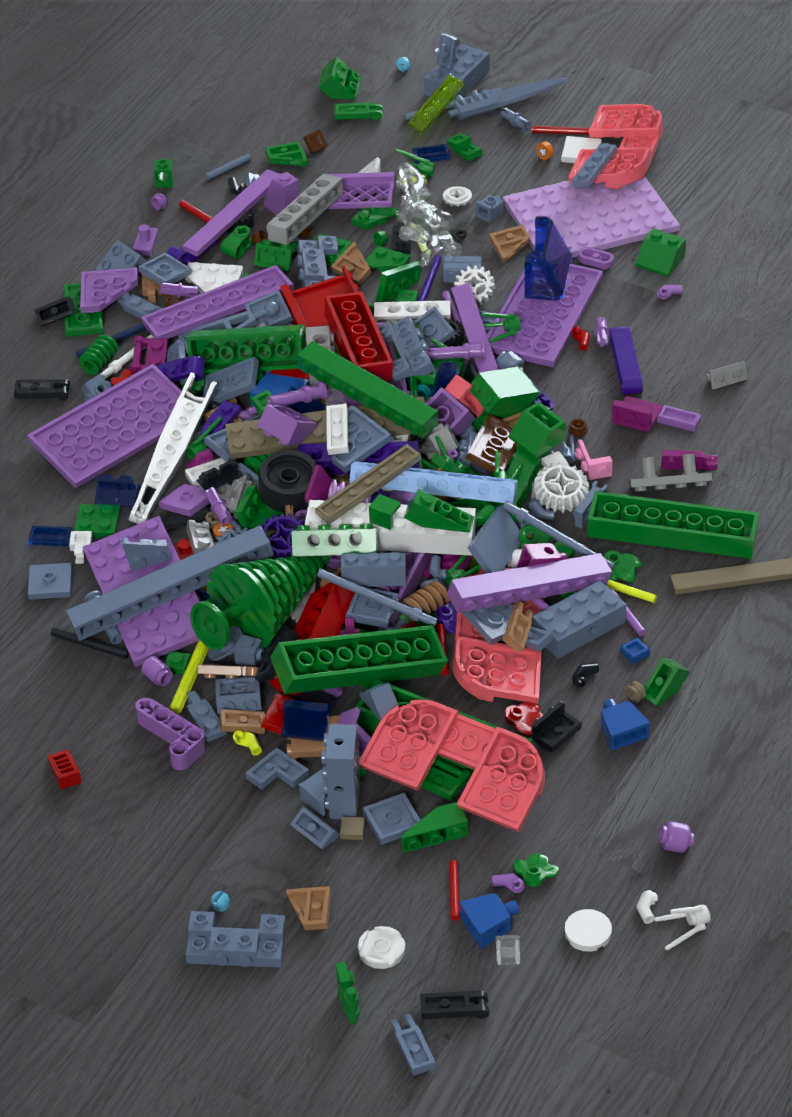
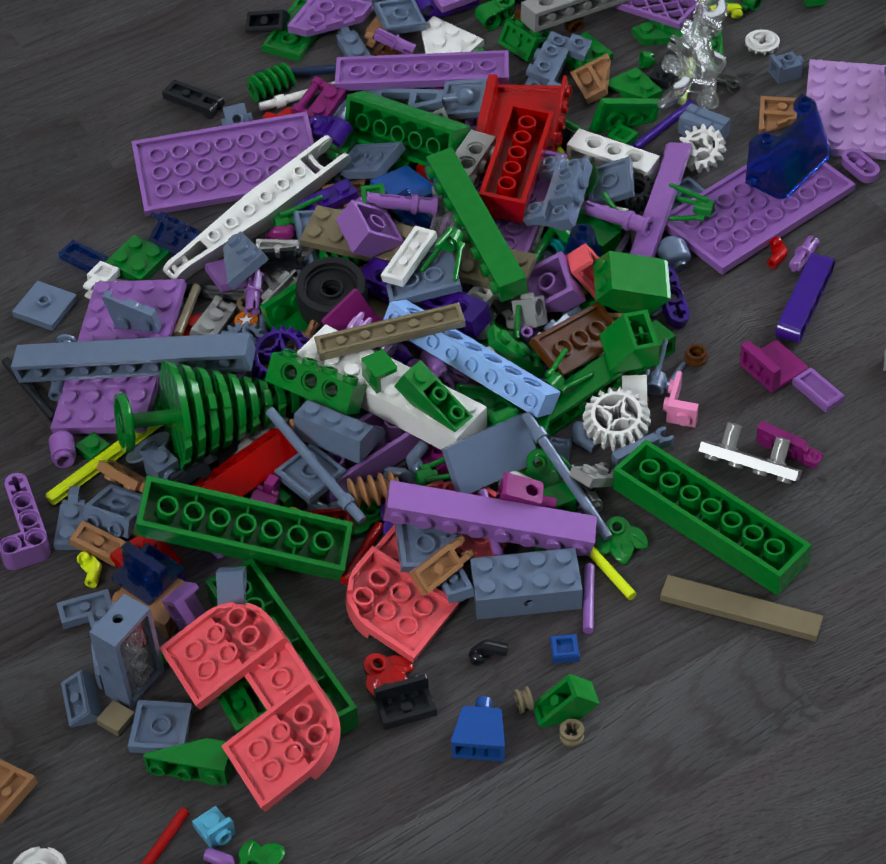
camera: 30 degrees right, 5 degrees up
(175, 538) = (187, 310): none -> dark tan bar
(195, 483) = (241, 259): none -> sand blue wing
(363, 407) = (449, 242): none -> green plant
(484, 863) = (214, 827): none -> medium azure bracket
(575, 528) = (593, 476): none -> light grey hinge
(682, 704) = (569, 740): none -> dark tan bush

